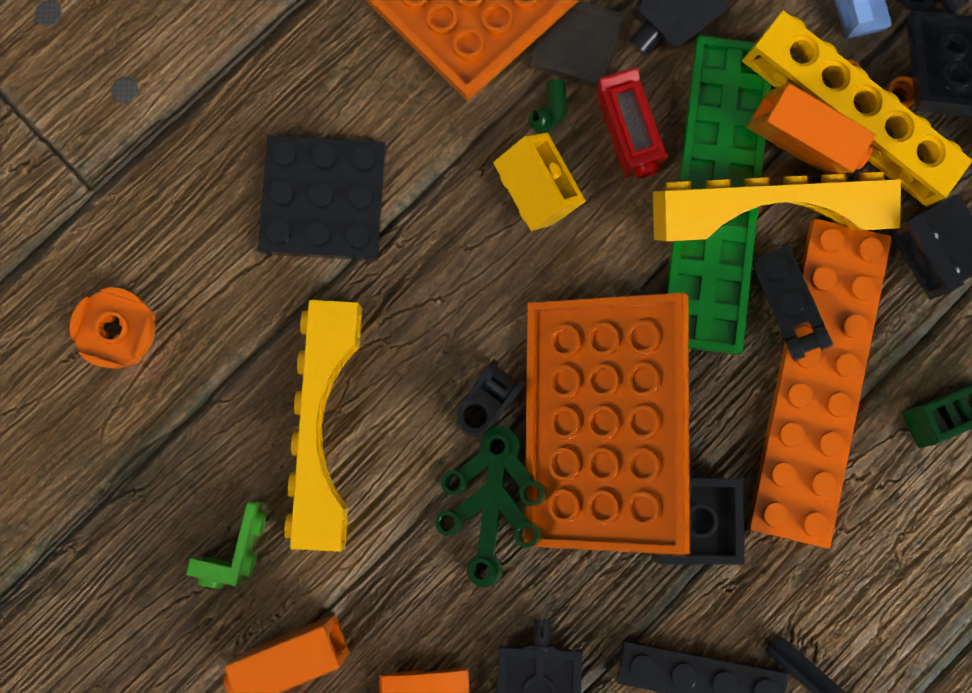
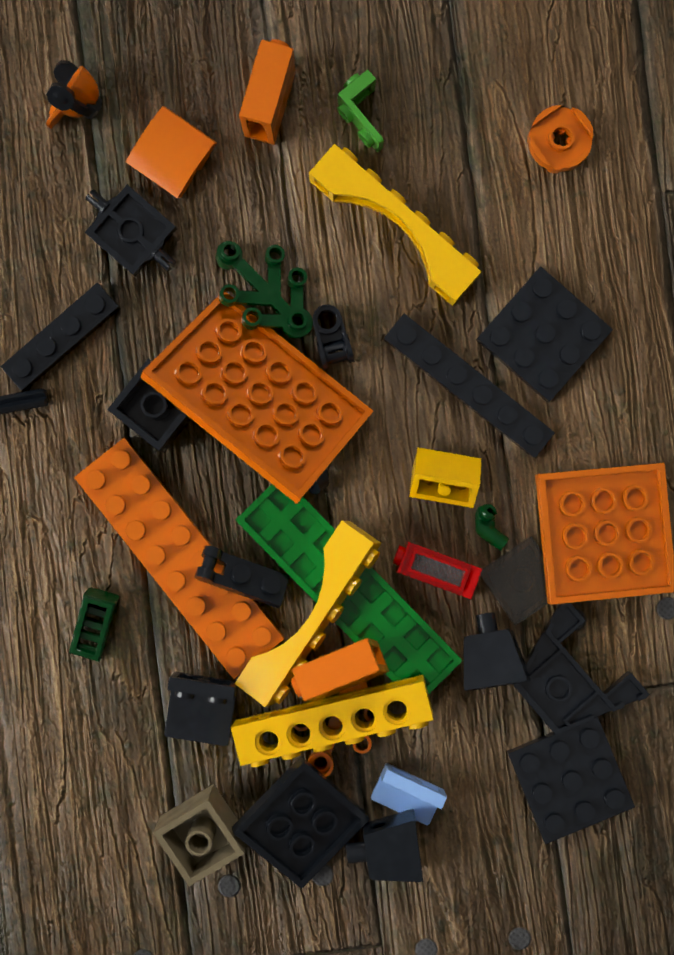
camera: 135 degrees right, 5 degrees up
(429, 232) = (469, 386): none -> black plate

